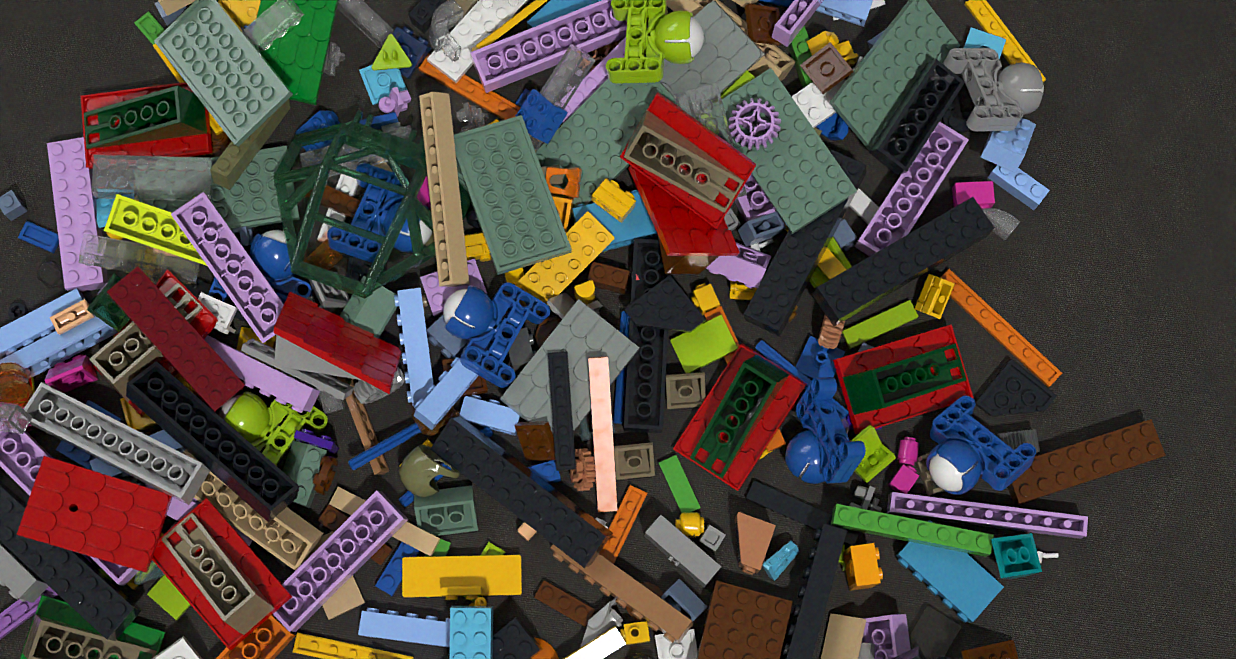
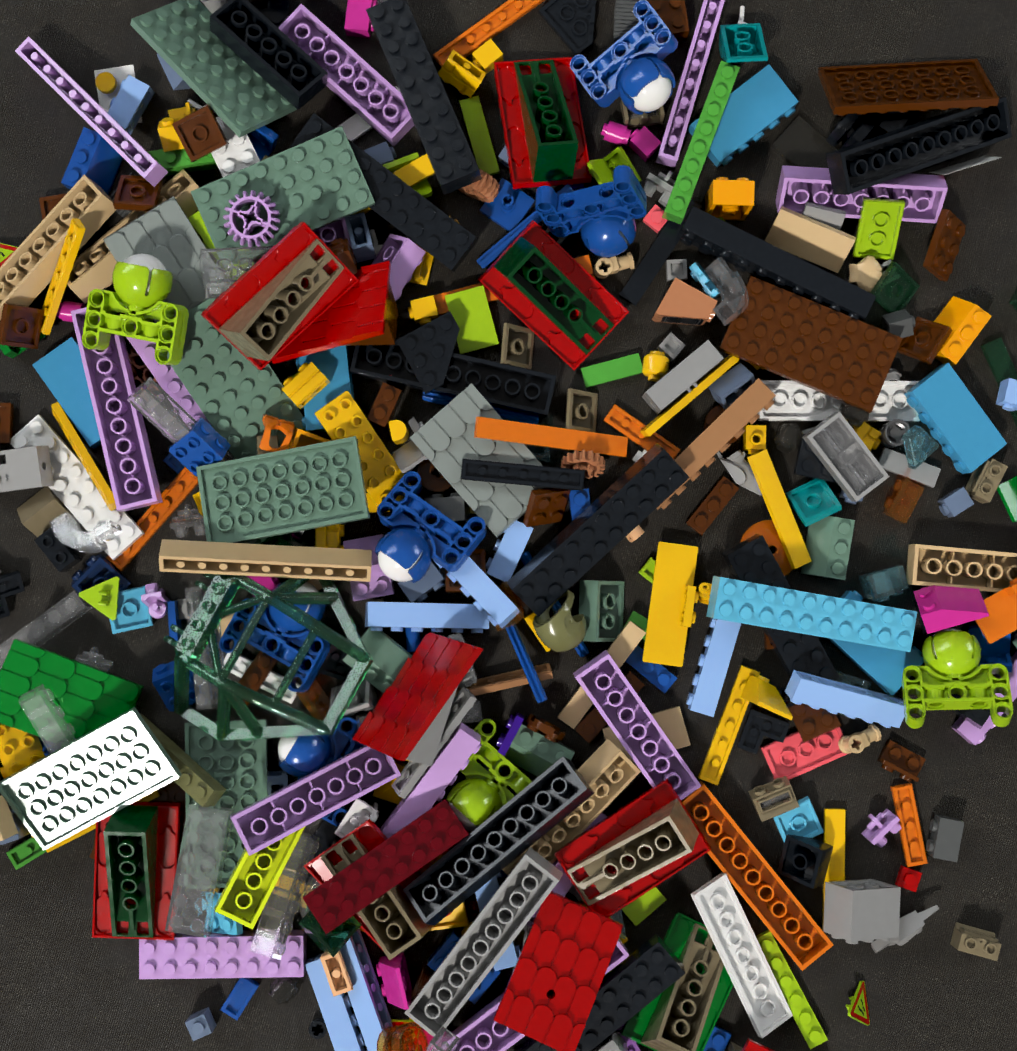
camera: 80 degrees left, 10 degrees up
(392, 338) = (413, 640): none -> blue piece
(663, 559) = (687, 397): none -> yellow tile
(739, 213) = (343, 251): none -> reddish brown brick
(773, 585) = (731, 288): none -> clear arch
(781, 470) = (613, 265): none -> tan connector
(787, 531) = (676, 268): none -> light grey plate
(831, 500) = (654, 219): none -> coral plate
(957, 317) = (486, 56): none -> yellow brick

